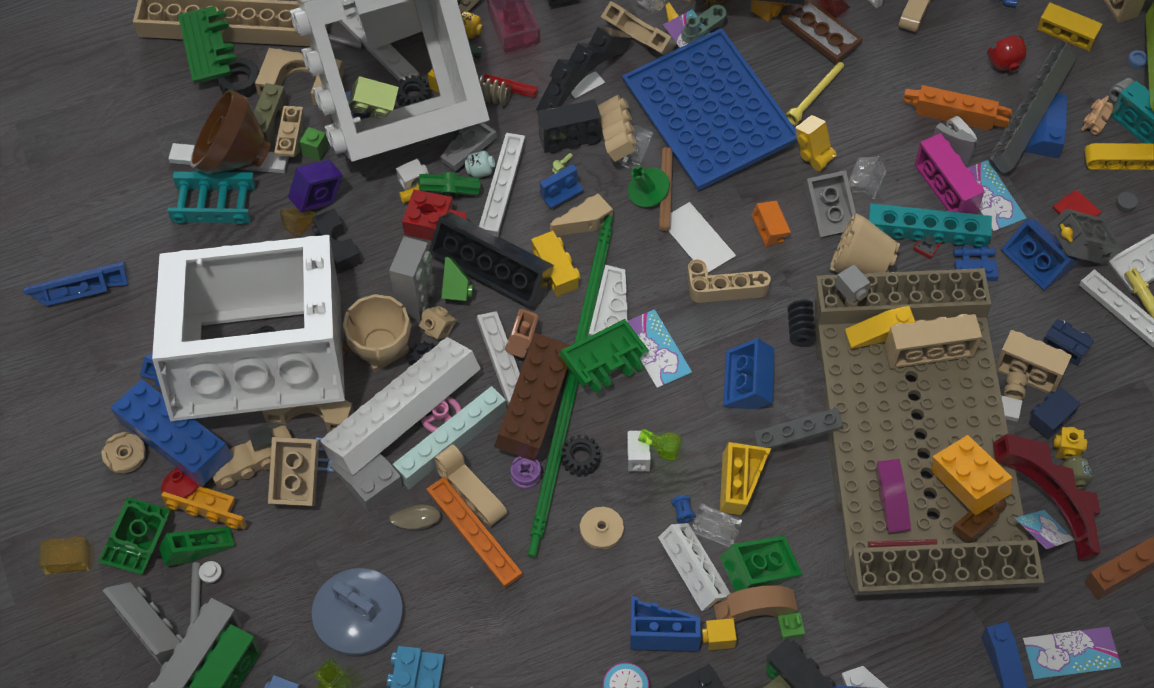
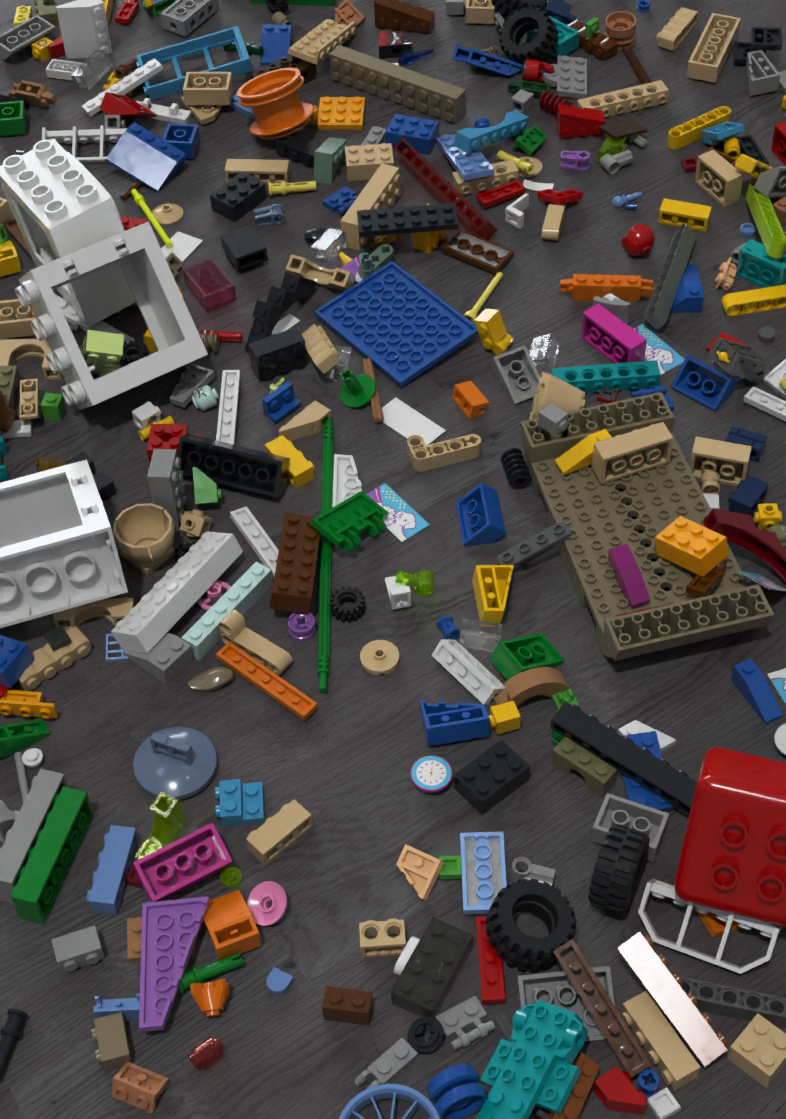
camera: 10 degrees left, 10 degrees down
(293, 471) = (92, 659): tan brick -> none
(315, 185) = (62, 435): dark purple brick -> none
(449, 184) = (182, 415): green piece -> none
(521, 333) = (273, 517): nougat brick -> none

